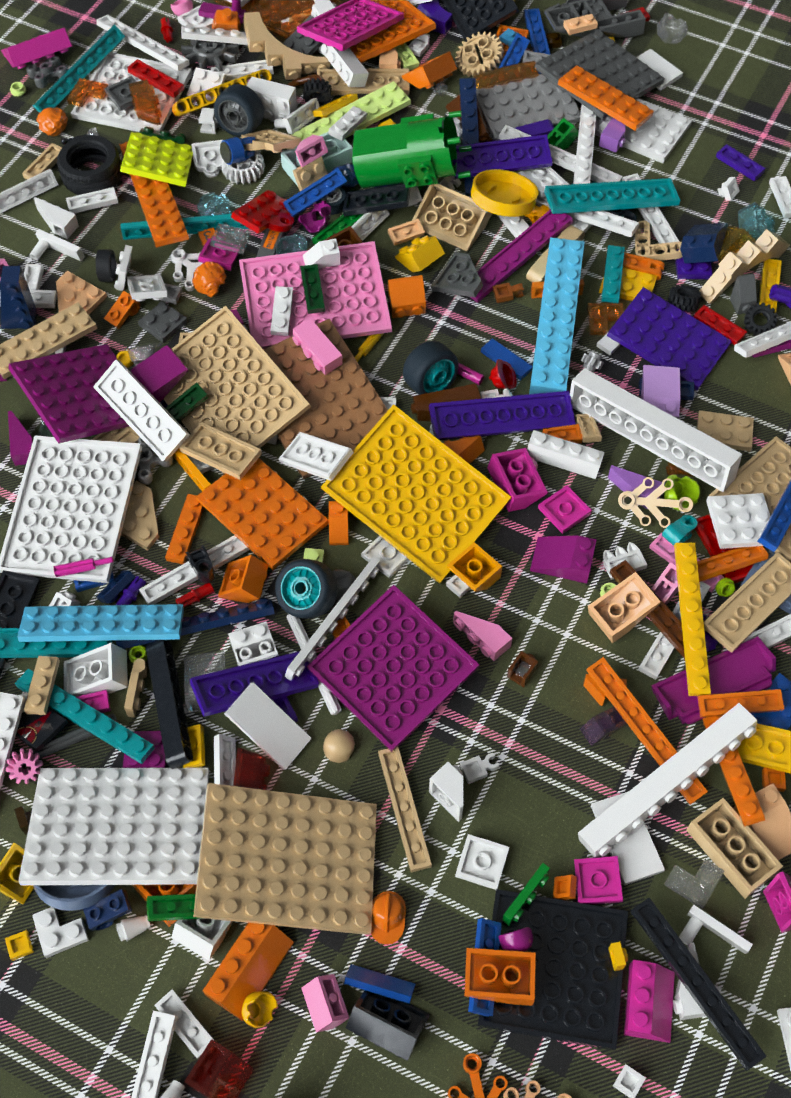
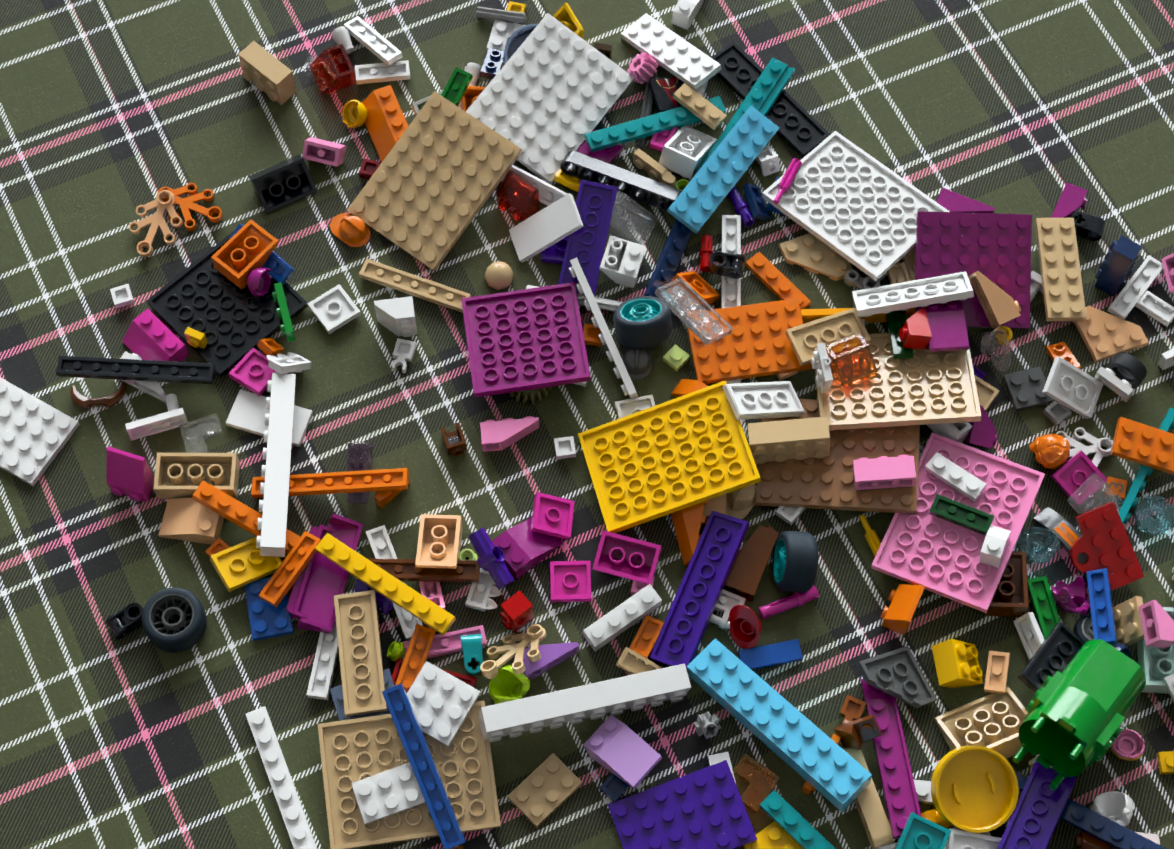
camera: 125 degrees right, 5 degrees up
(36, 951) = (502, 15): none -> light grey axle
(114, 347) = (995, 302): none -> light nougat slope
(174, 389) = (916, 331): none -> red slope
(234, 418) = (851, 360): none -> clear orange slope
(261, 422) = (819, 362): none -> white plate
(272, 549) = (693, 311): none -> clear plate
(308, 948) = (368, 168): none -> dark red tile
(335, 415) = (789, 439): none -> tan brick
(379, 983) = (309, 193): blue tile -> none
(476, 568) = (564, 460): light orange slope -> none
(523, 277) = (858, 731): none -> reddish brown slope
(526, 551) = (552, 515): none -> dark pink plate
(570, 853) = (288, 363): none -> white plate
(602, 561) = (491, 558): none -> dark purple piece
(625, 520) = (516, 612): none -> red brick
(755, 1019) = (109, 401): none -> reddish brown piece

